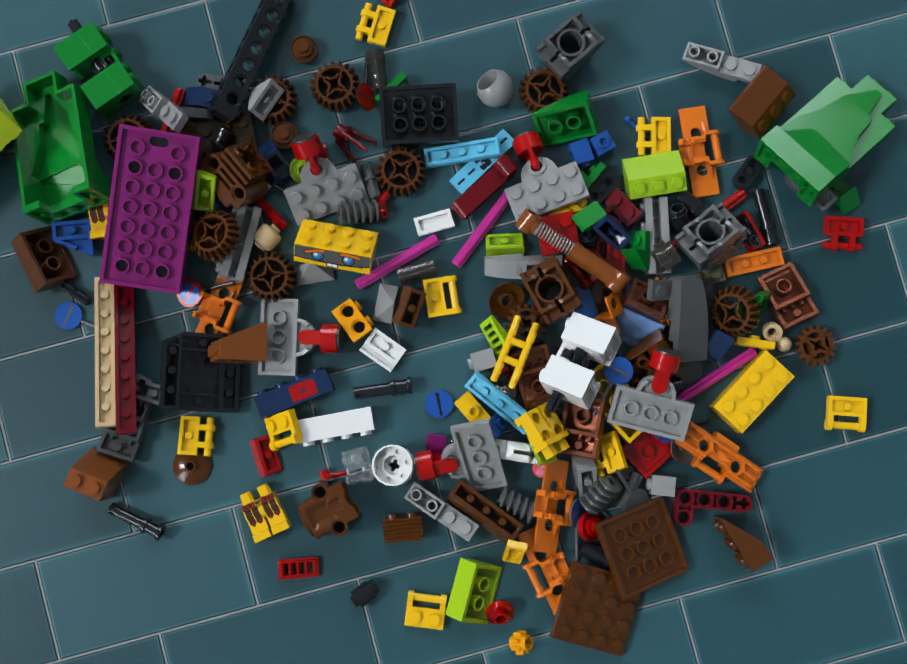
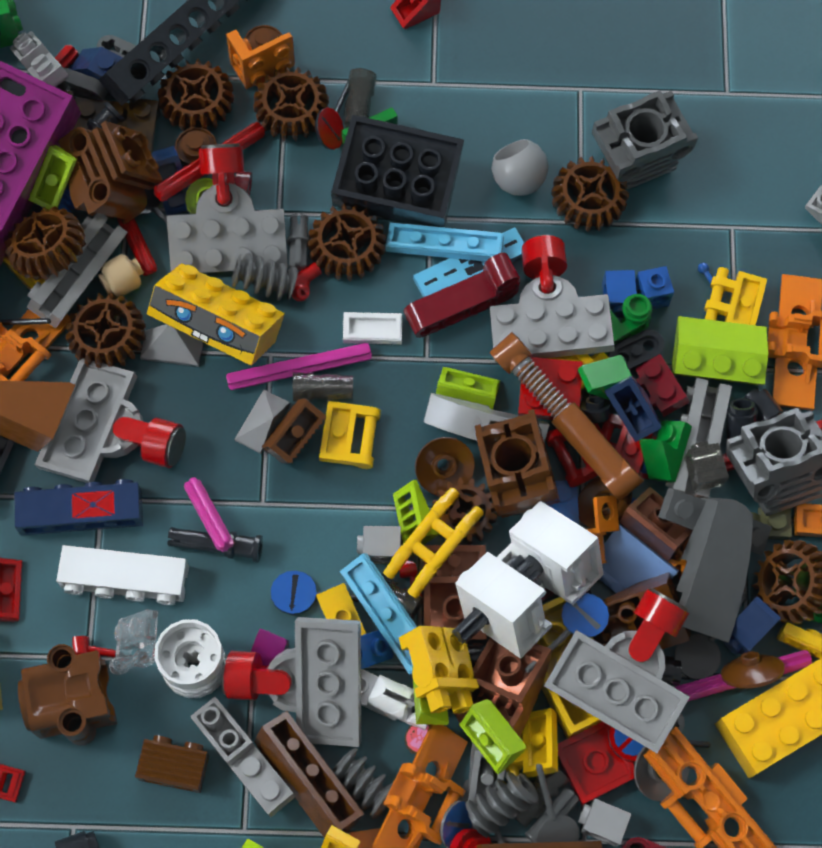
camera: 15 degrees right, 15 degrees down
(263, 98) = (185, 86): light grey slope -> none
(281, 423) = (38, 546): yellow plate -> none
(289, 155) = (192, 171): none -> red axle
(305, 69) = (255, 64): none -> orange bracket
(344, 134) = (283, 171): dark red plant -> none
(349, 323) = (201, 429): light orange brick -> none
(368, 368) = (208, 514): none -> dark pink axle
(381, 25) = (383, 45): yellow plate -> none
(383, 350) = (234, 485): white plate -> none
(481, 231) = (437, 359): dark pink axle -> none
(567, 119) = (611, 237): green slope -> none
(585, 460) = (492, 735): none -> lime slope
(596, 164) = (637, 308): none -> green plate
(724, 371) = (752, 670): none -> reddish brown dish

